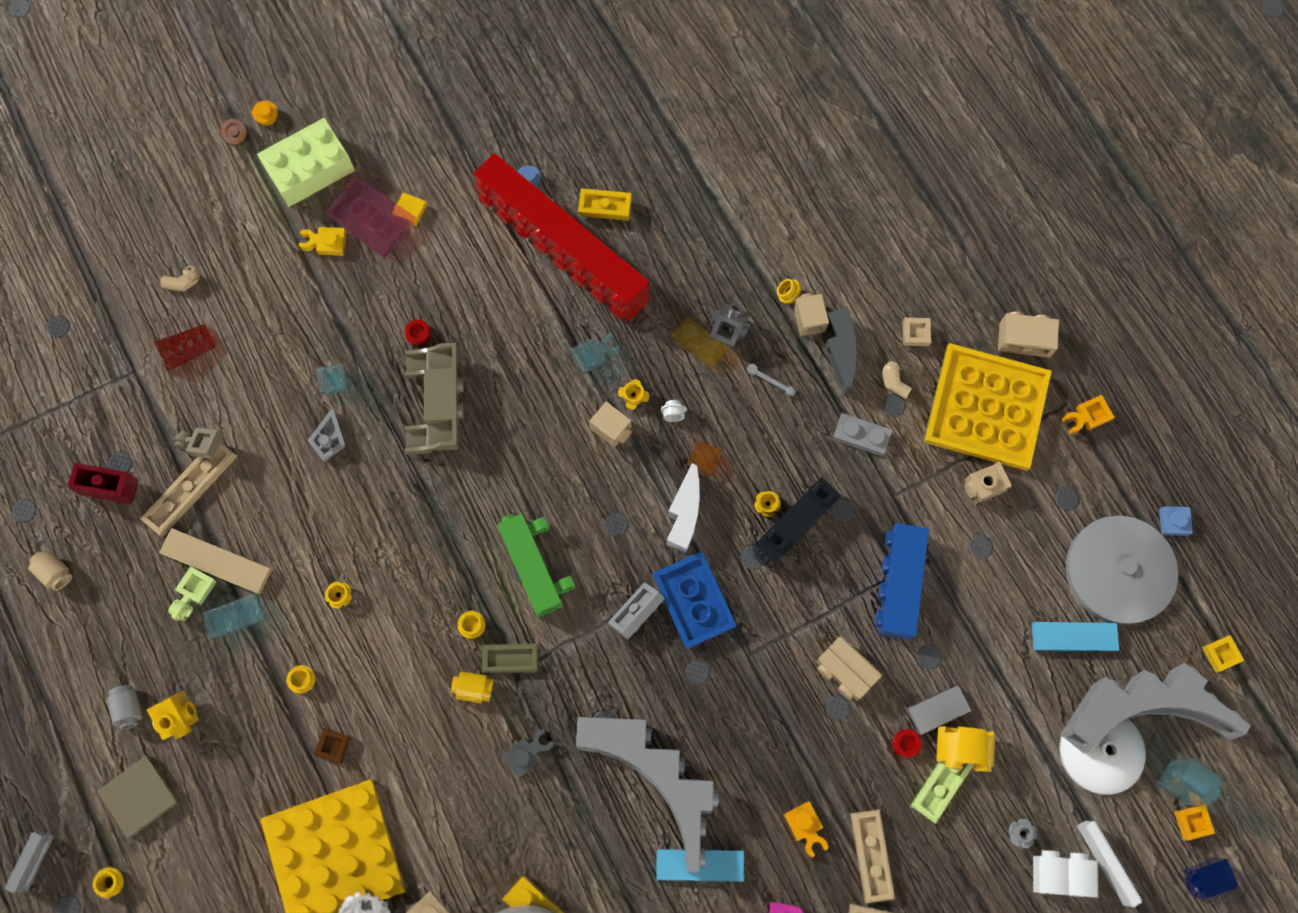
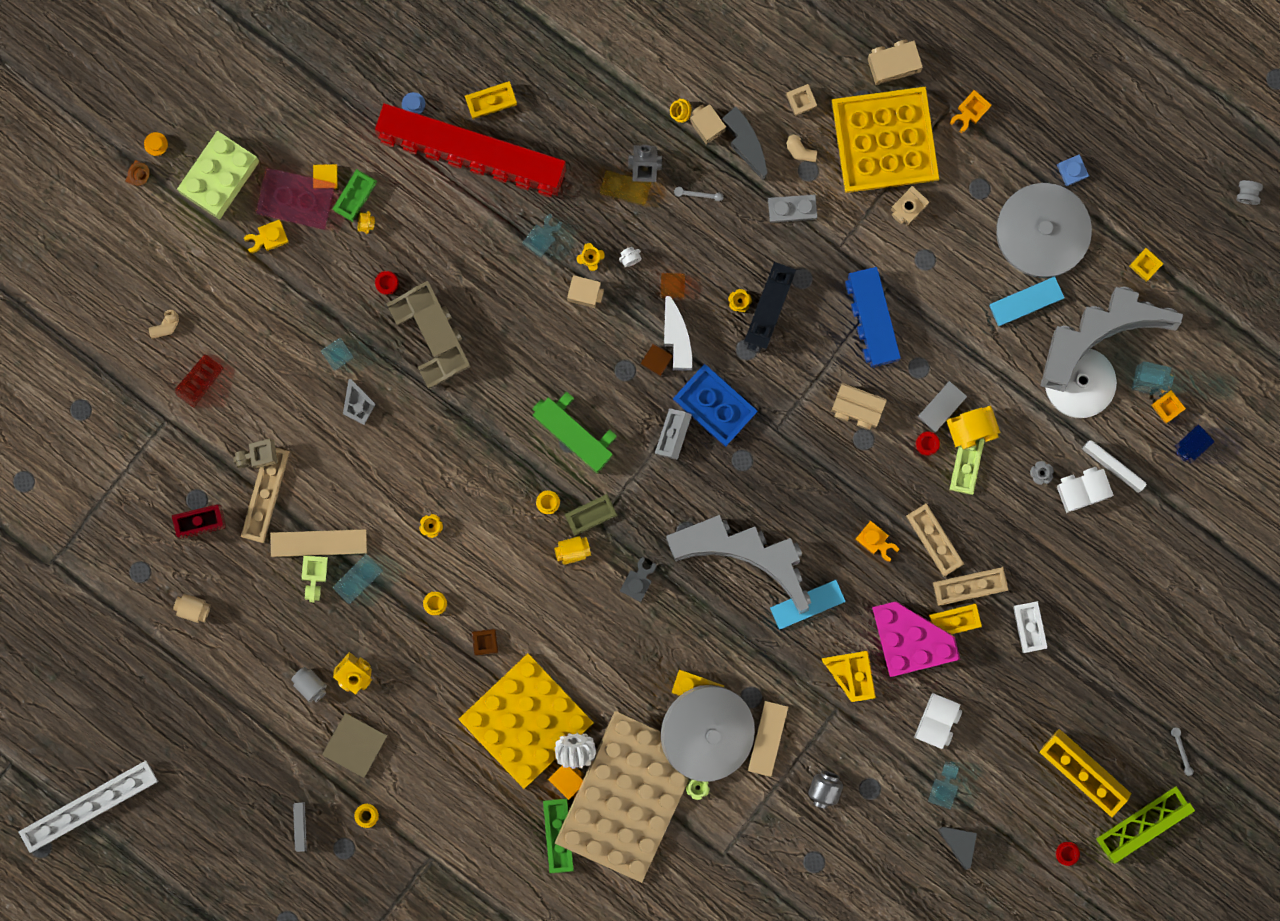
camera: 25 degrees left, 10 degrees up
(426, 266) = (365, 222): none -> yellow plate
(428, 237) = (354, 195): none -> bright green plate
(653, 526) = (656, 360): none -> reddish brown tile

